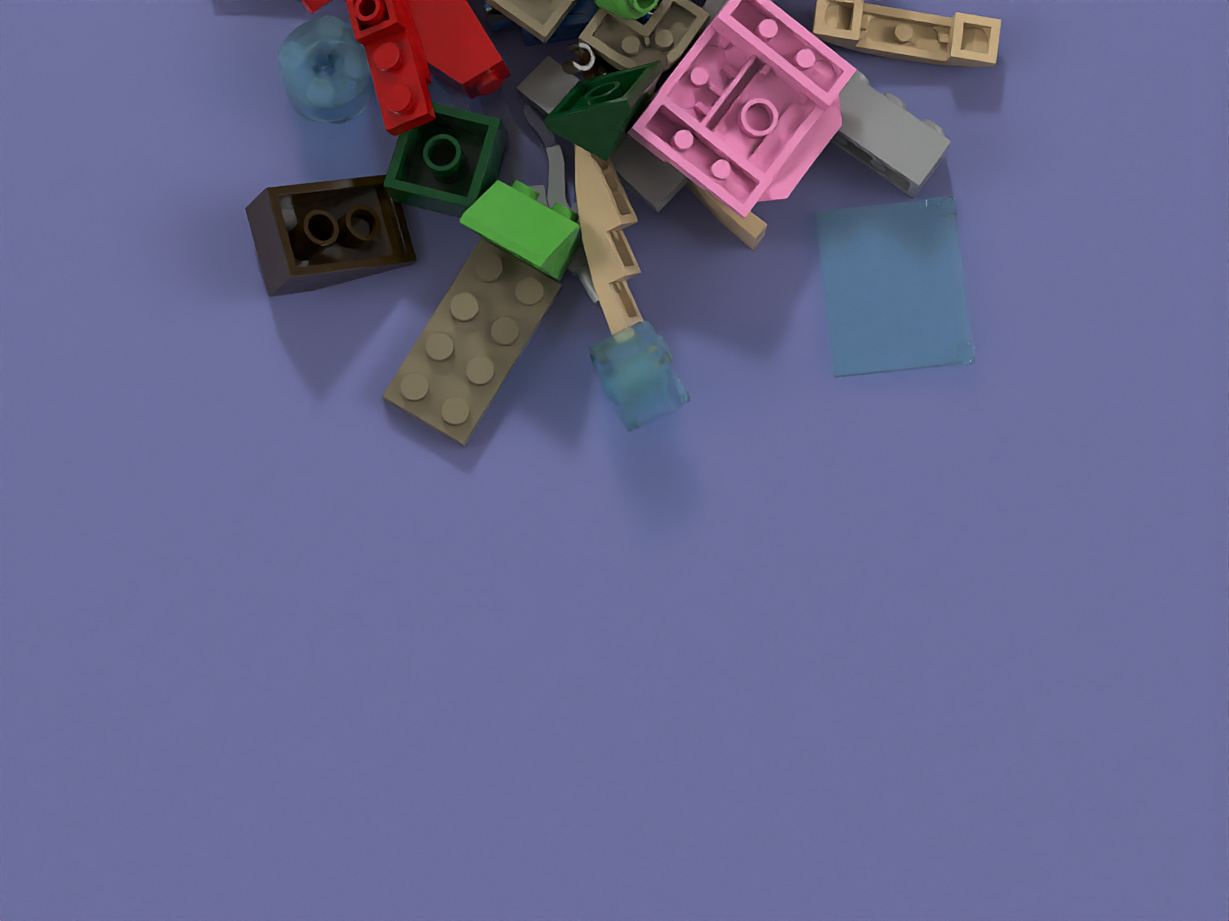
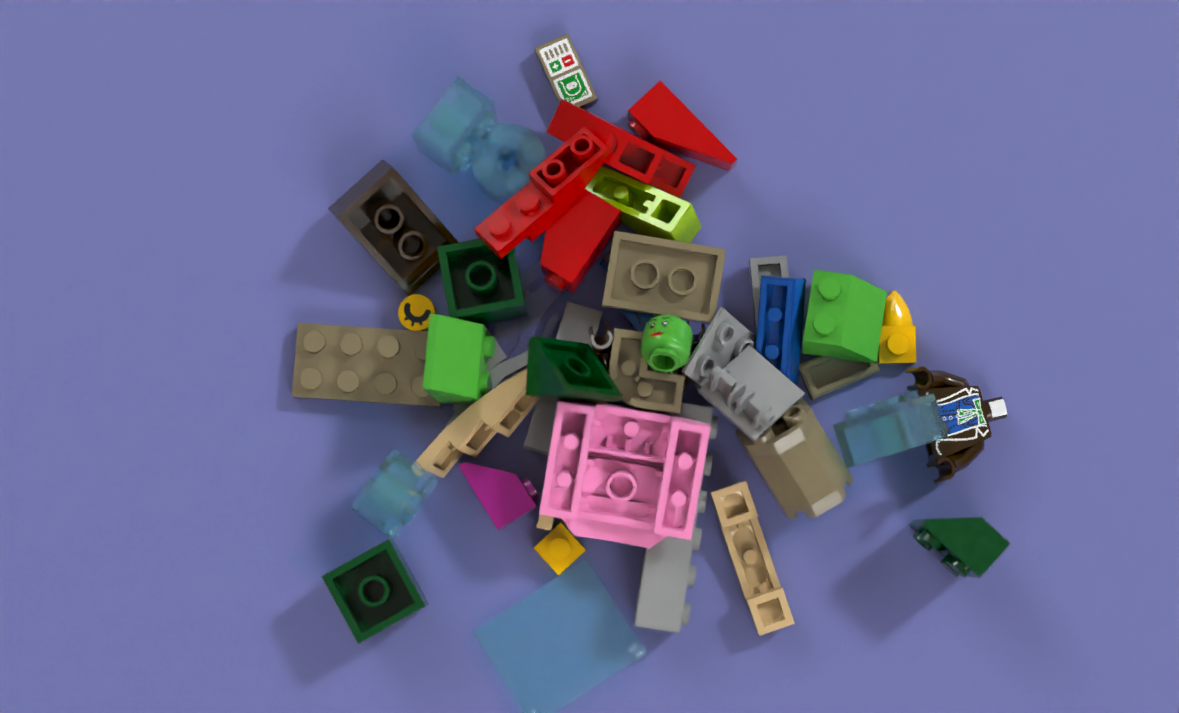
camera: 65 degrees right, 5 degrees up
(253, 99) = (455, 126): none -> clear light blue brick
(440, 260) = (415, 312): none -> yellow tile
(694, 265) = (500, 493): none -> magenta slope
(736, 450) = (375, 590): none -> dark green brick
(790, 235) = (559, 548): none -> yellow plate

